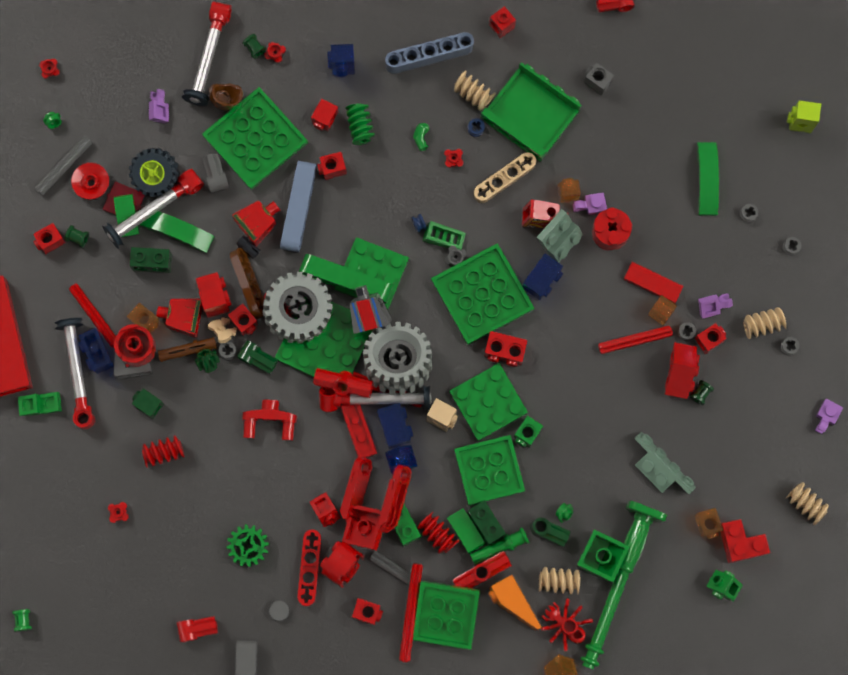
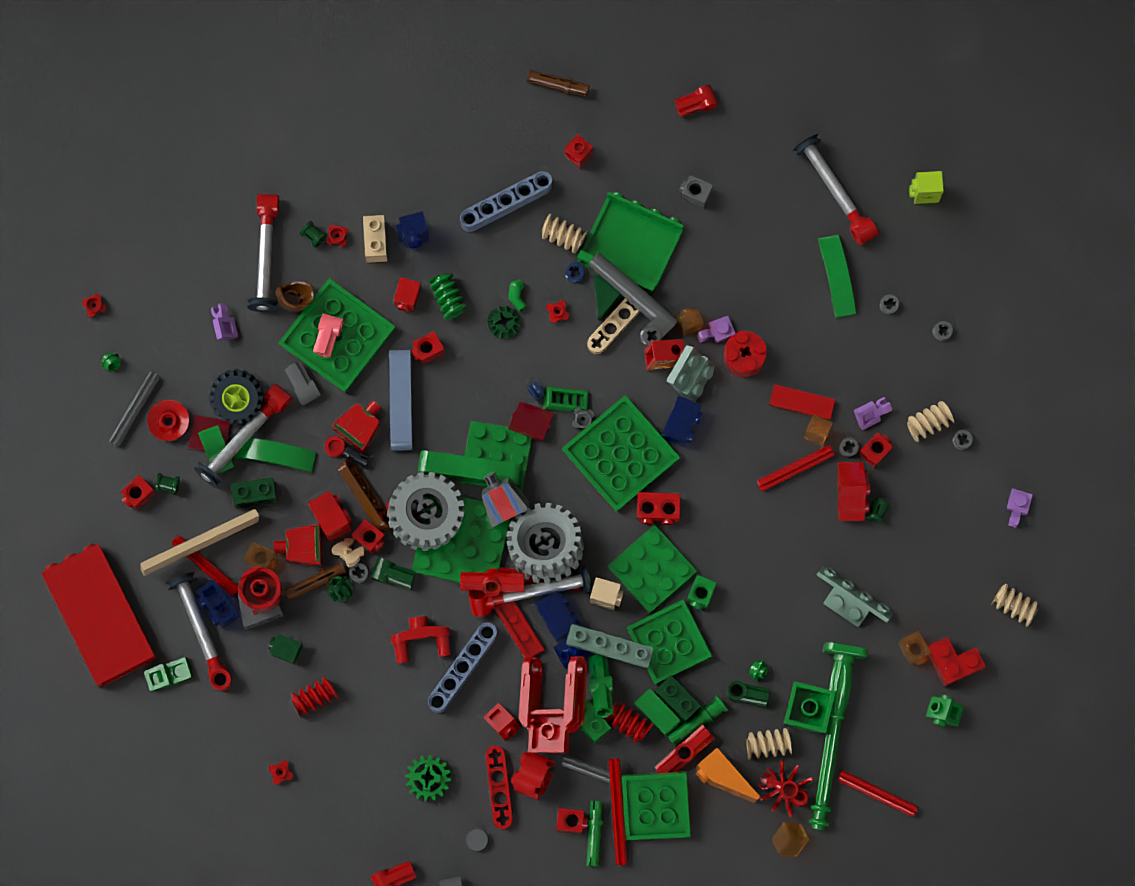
camera: 10 degrees left, 0 degrees up
(92, 293) = (199, 542): none -> tan tile
(231, 234) = (335, 446): none -> red tile
(248, 131) = (329, 330): none -> coral piece
(305, 445) = (464, 657): none -> sand blue beam
(307, 61) = (375, 238): none -> tan brick
(386, 627) = (594, 834): none -> green pin
(398, 163) = (499, 330): none -> dark green gear
(409, 248) = (531, 421): none -> dark red piece
(419, 496) = (600, 685): none -> green piece
(435, 462) = (609, 646): none -> sand green bracket
(499, 153) = (605, 296): none -> dark green slope
(543, 182) = (660, 319): none -> dark grey axle
(648, 646) = (877, 793): none -> red axle
(738, 139) = (861, 228): none -> piece

